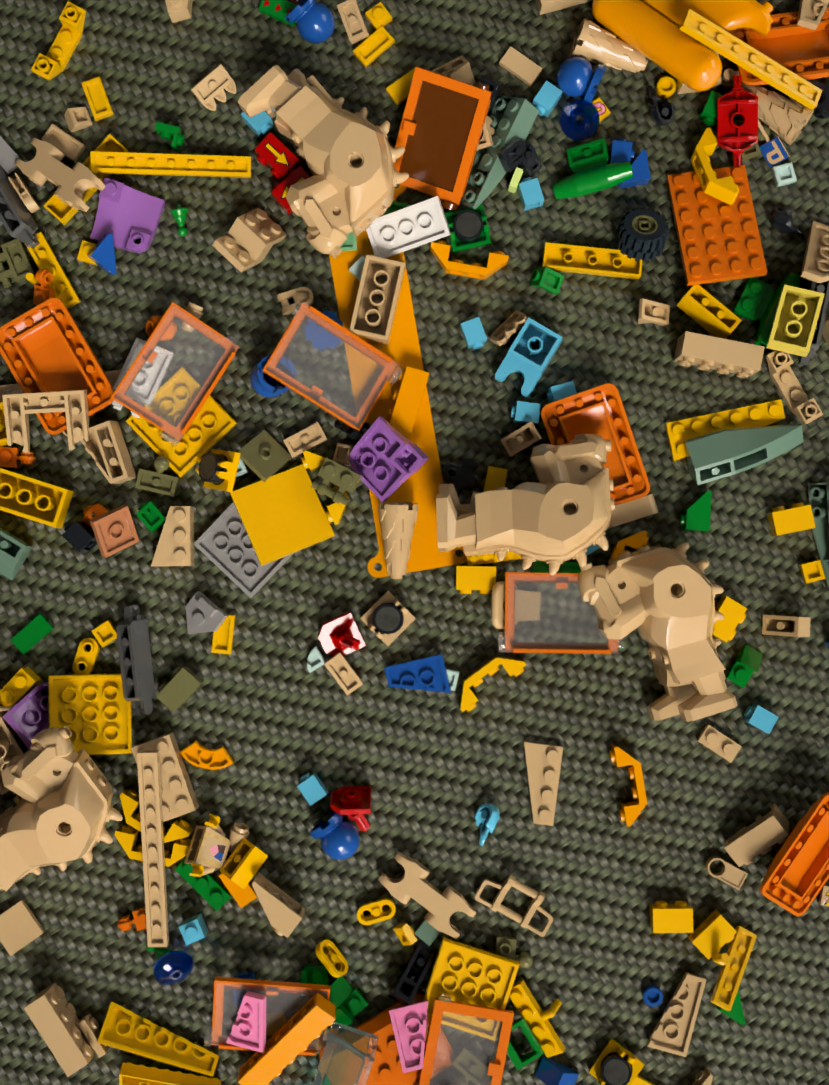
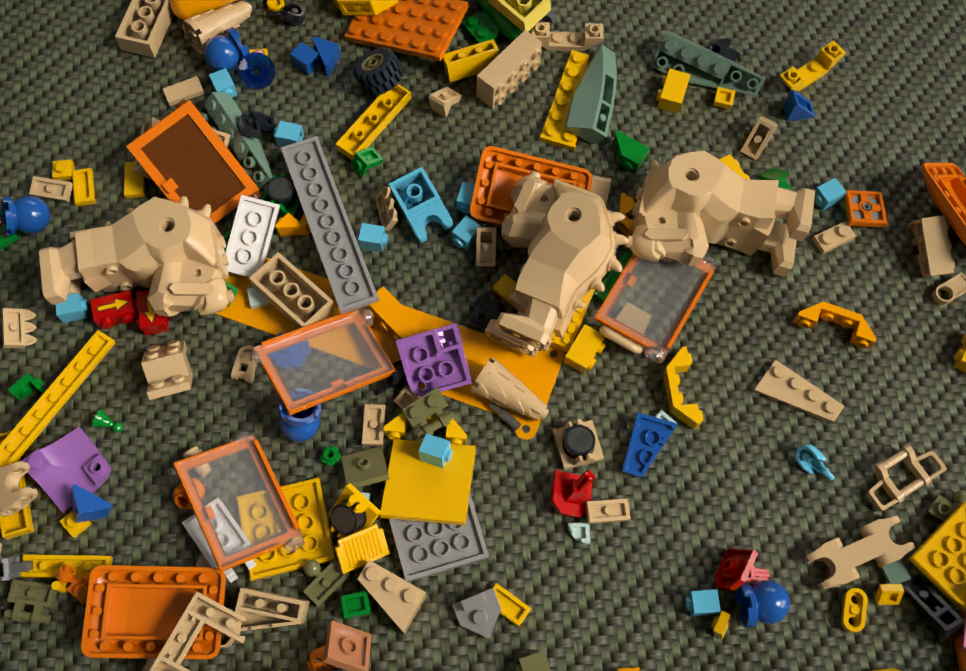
camera: 60 degrees left, 20 degrees down
(197, 493) = (361, 547): none -> yellow window
(264, 420) = (330, 461): none -> green plate
(303, 810) = (721, 624): none -> yellow plate
(308, 506) = (435, 451): none -> medium azure brick
(377, 545) = (505, 416): none -> flat silver pin
(459, 288) = (329, 225): none -> light grey plate
(515, 180) = (270, 140): yellowish green tile -> none
(591, 171) = (303, 82): green plate -> none
(765, 758) = (865, 208): none -> orange piece

